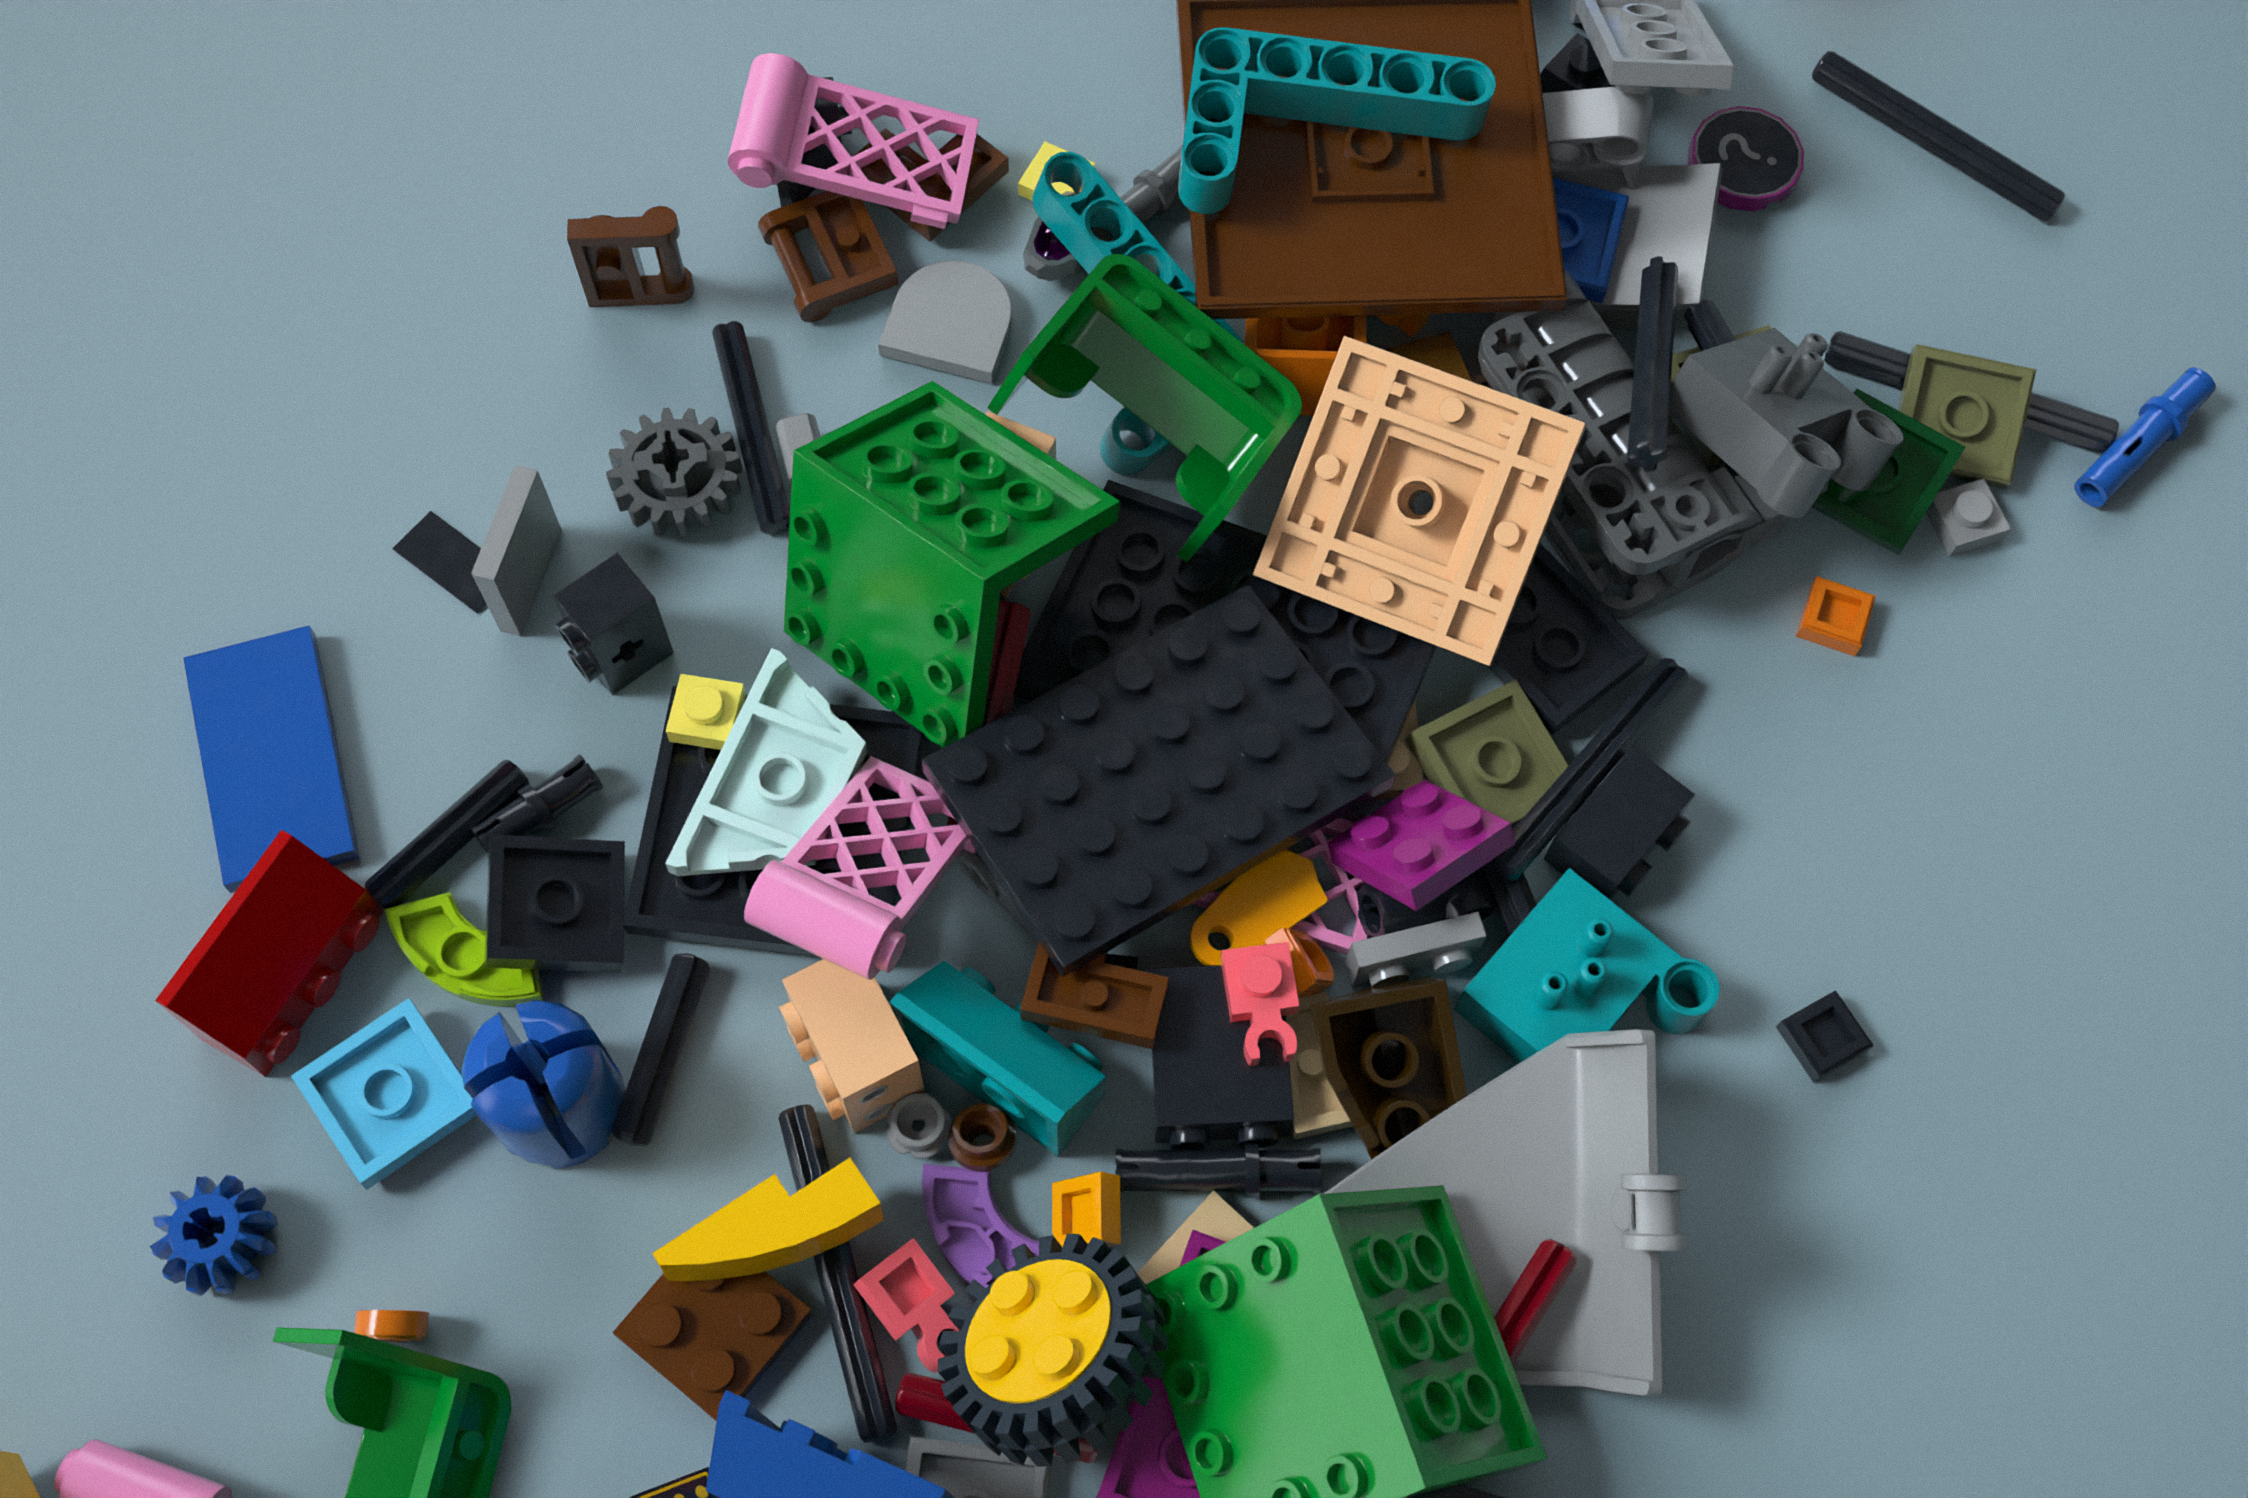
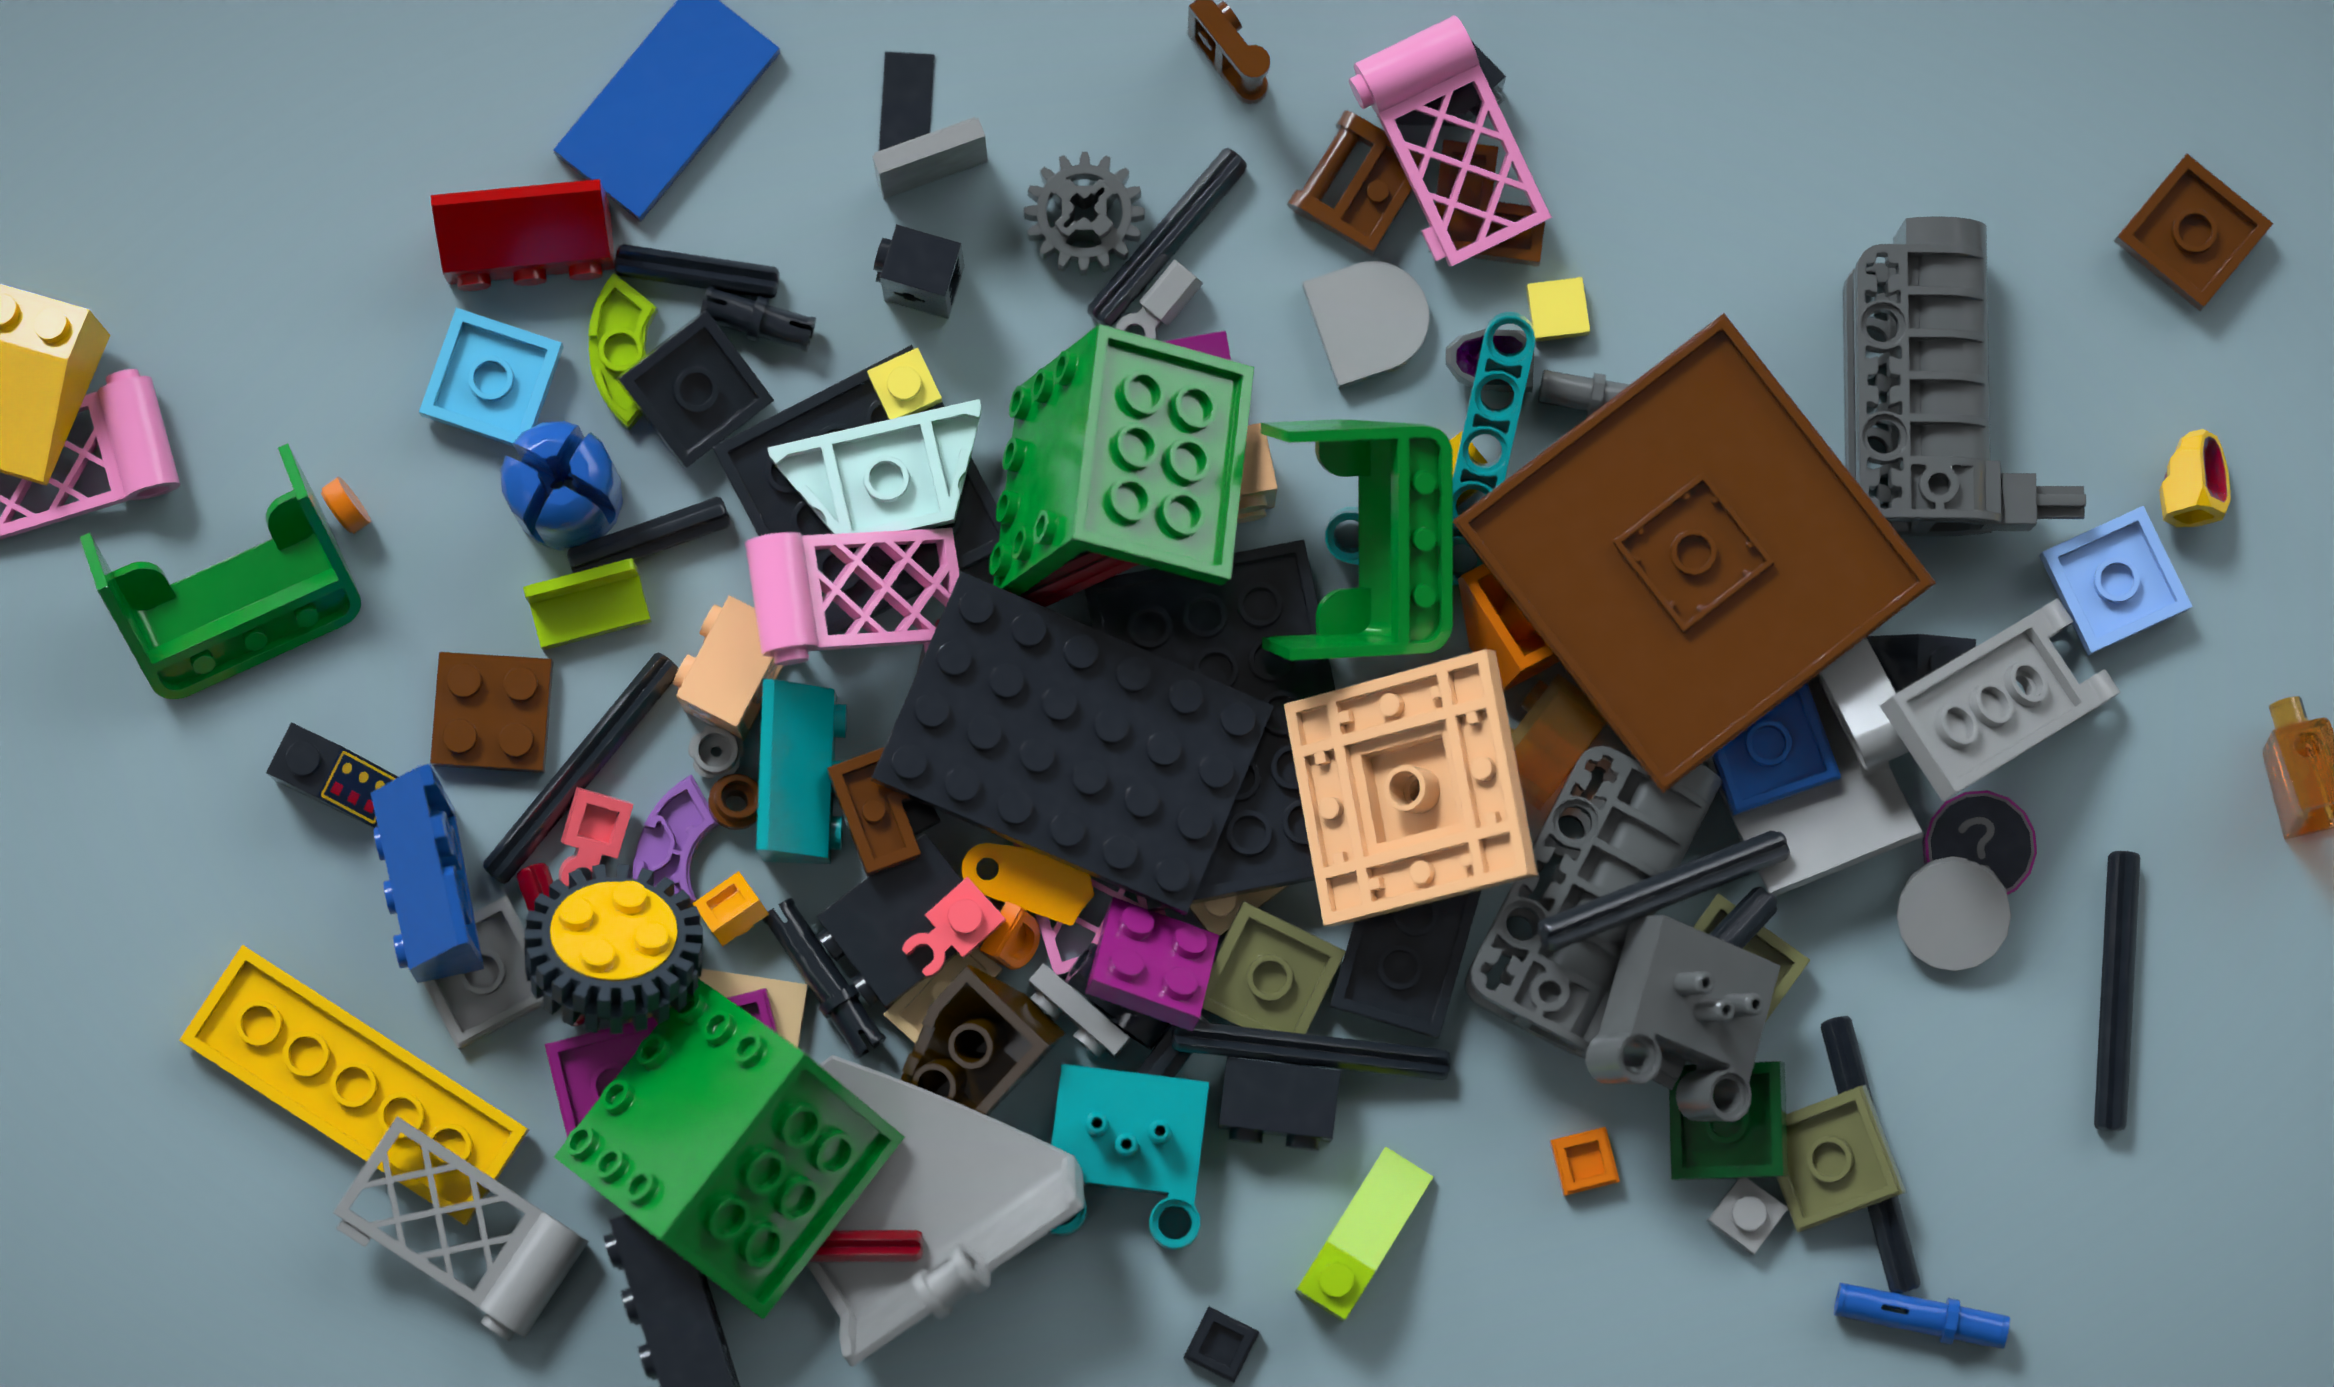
camera: 55 degrees right, 15 degrees up
(192, 1223) = (302, 354): blue gear -> none
(678, 1150) = (587, 604): none -> lime panel
(773, 1229) = (571, 710): yellow slope -> none
(1312, 95) = (1688, 480): teal beam -> none
(1797, 201) = (1953, 913): none -> light grey tile
(1801, 843) = (1364, 1234): none -> lime slope

